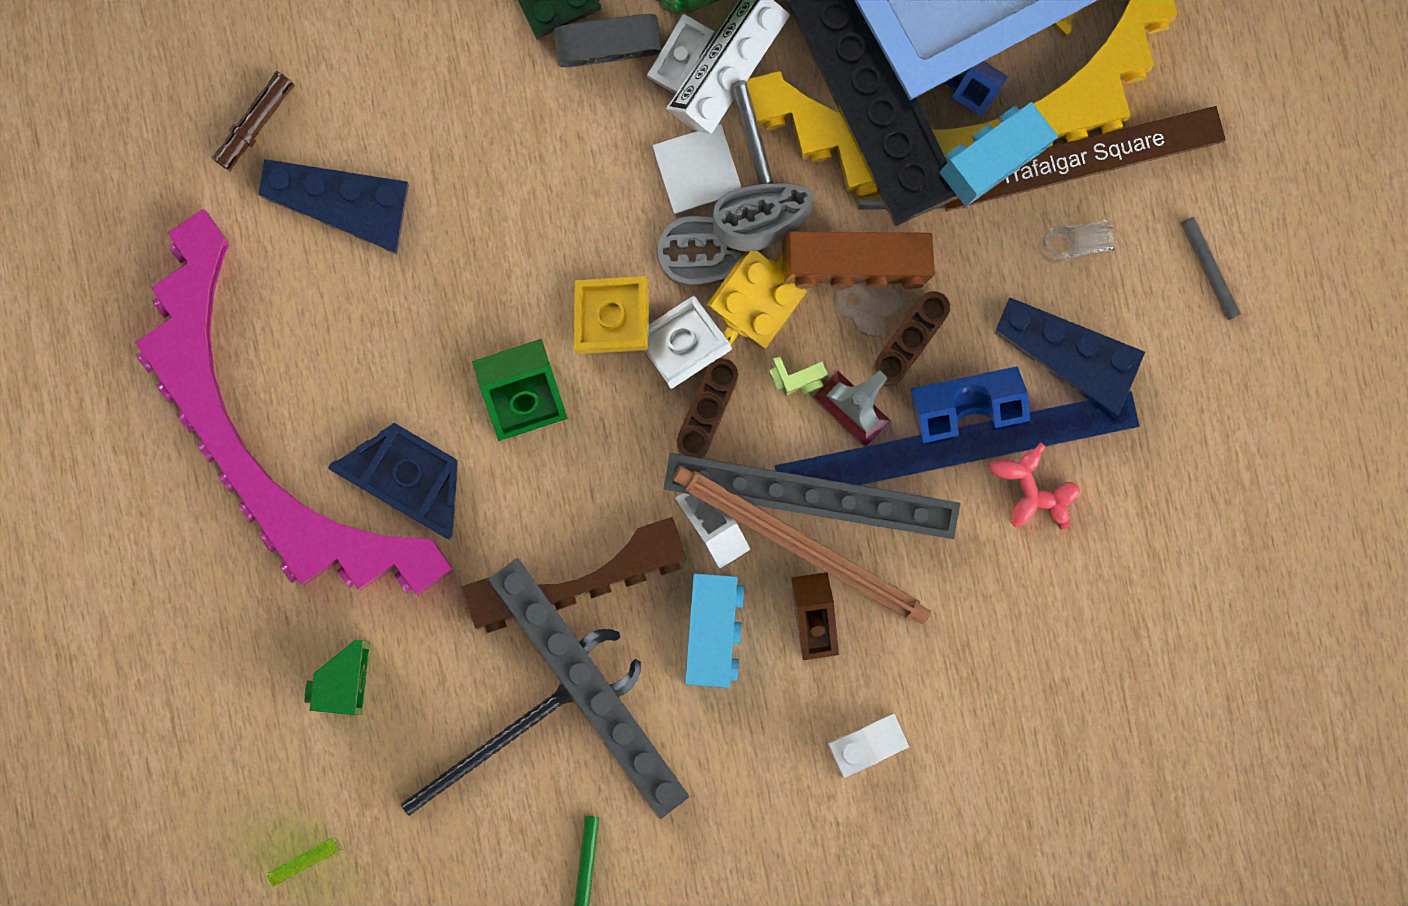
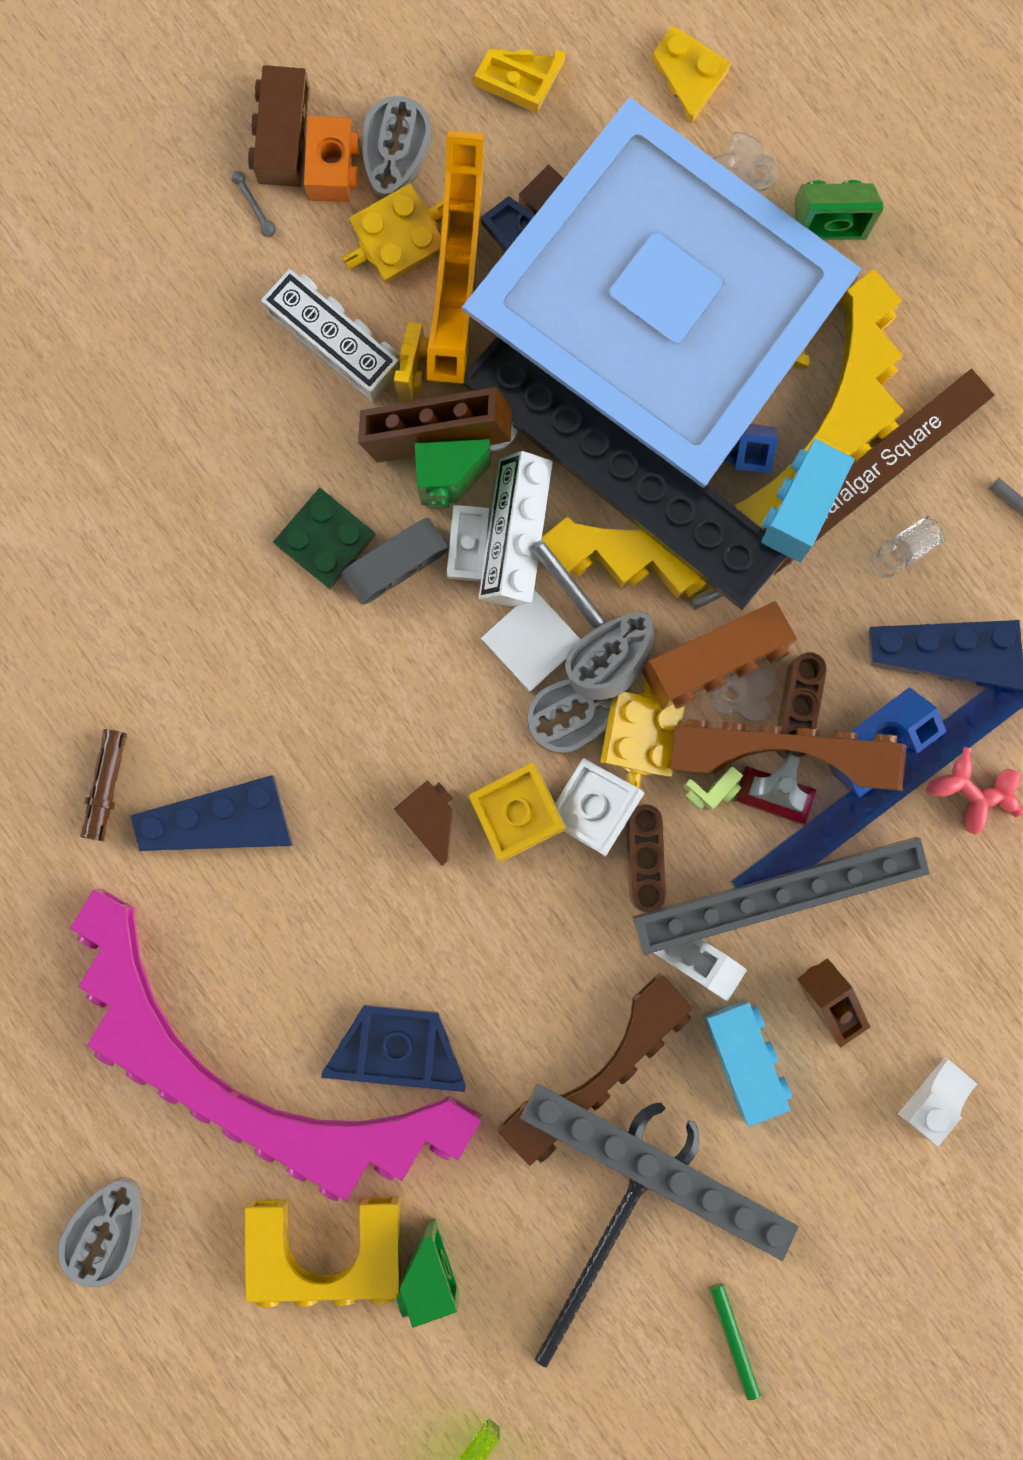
camera: 20 degrees left, 0 degrees up
(54, 505) = (118, 1248): none -> light grey piece
(207, 621) = (277, 1276): none -> yellow arch
(519, 389) = (464, 920): green slope -> none
(530, 284) = (429, 818): none -> reddish brown slope
(801, 545) = (792, 946): nougat piece -> none
(811, 340) = (866, 763): none -> dark orange arch

